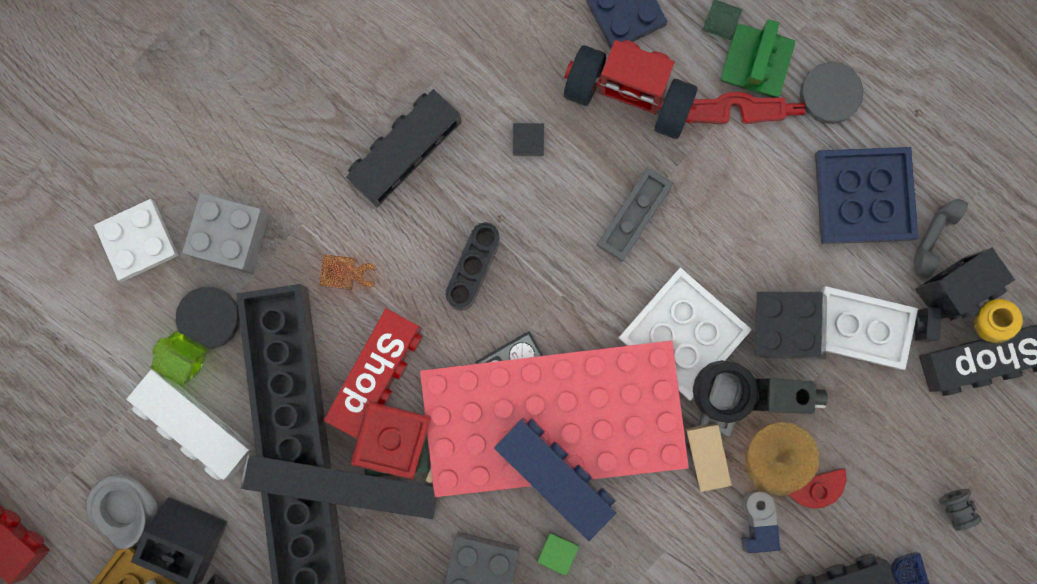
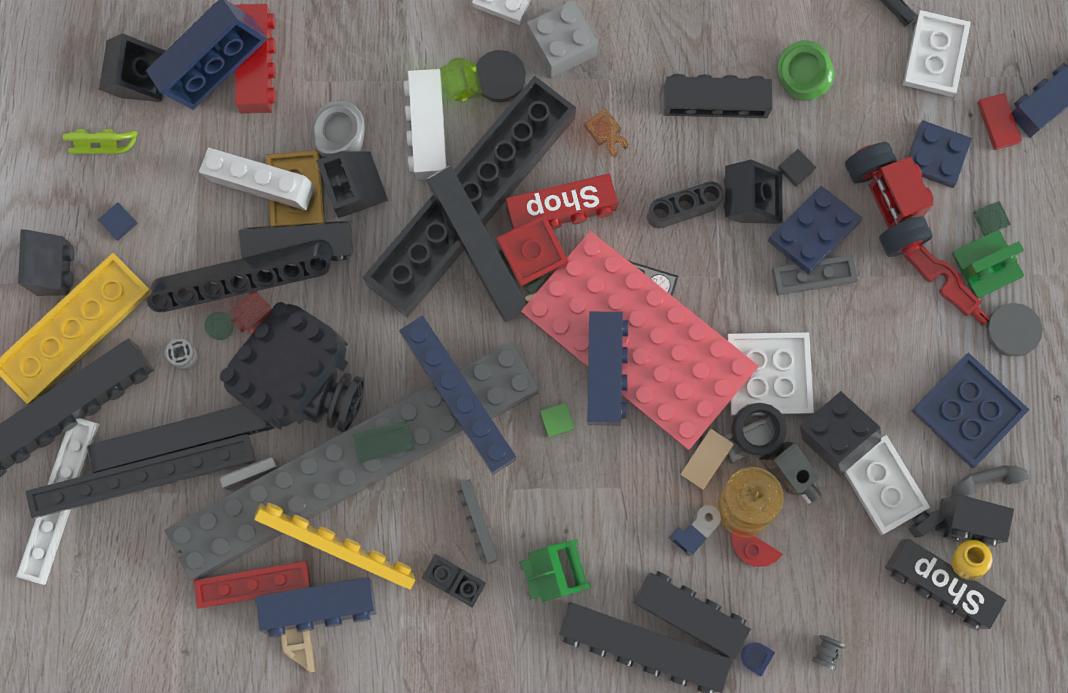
camera: 40 degrees right, 5 degrees down
(451, 51) = (805, 70): none -> bright green piece
(517, 198) = (753, 193): none -> black slope
(597, 177) = (815, 229): none -> dark blue plate

